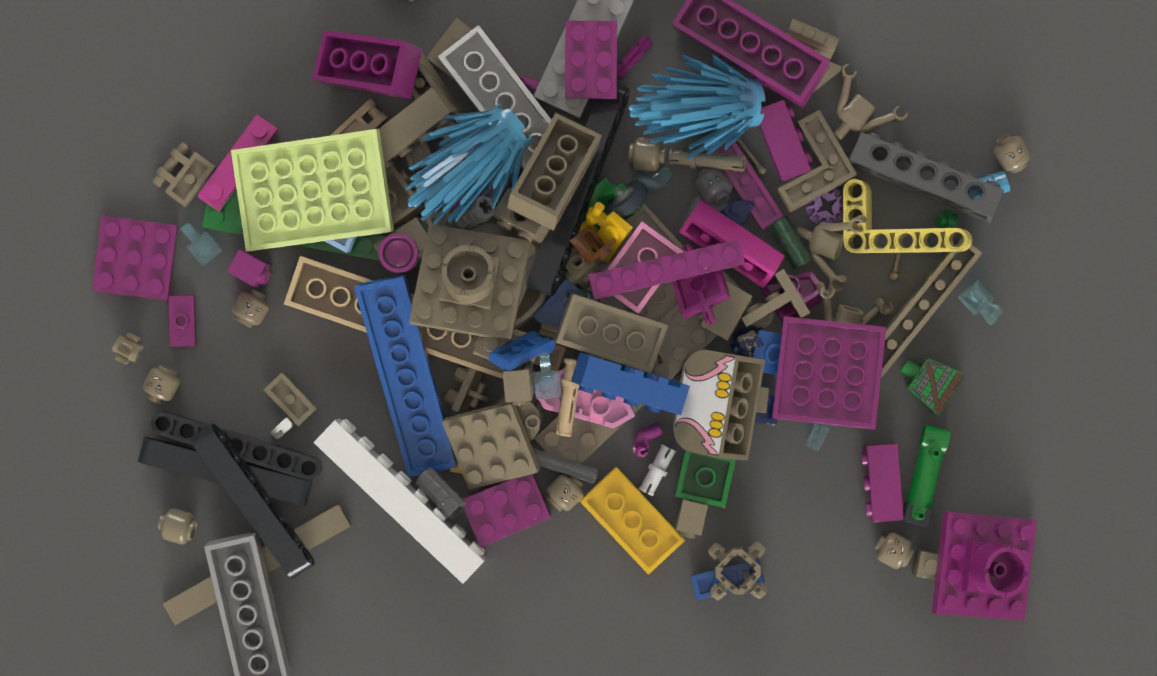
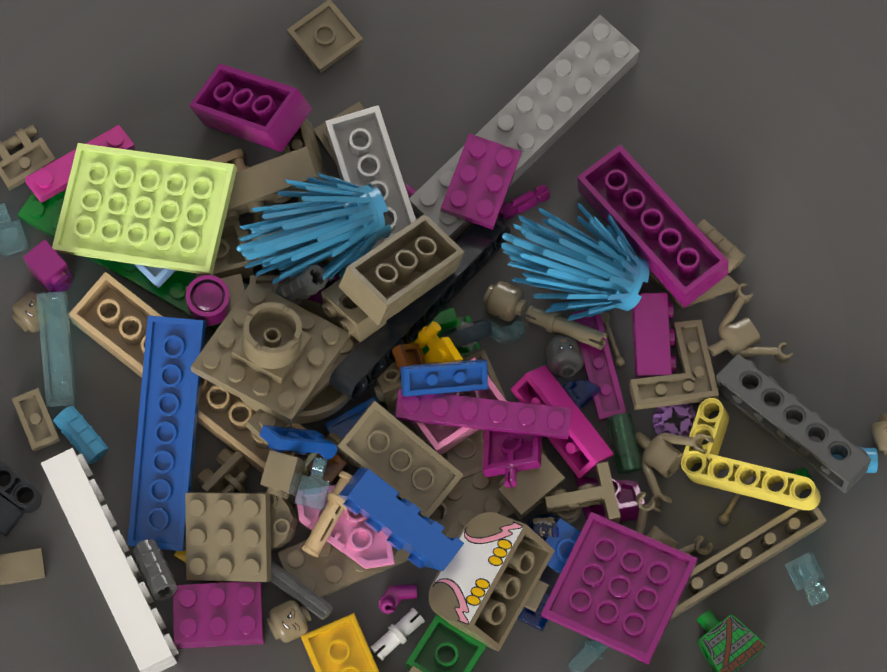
camera: 15 degrees right, 15 degrees down
(282, 428) = (15, 446): white tile -> none
(284, 335) = (56, 349): none -> clear light blue plate
(333, 398) = (81, 434): none -> dark azure axle
(624, 252) = (444, 377): none -> blue tile

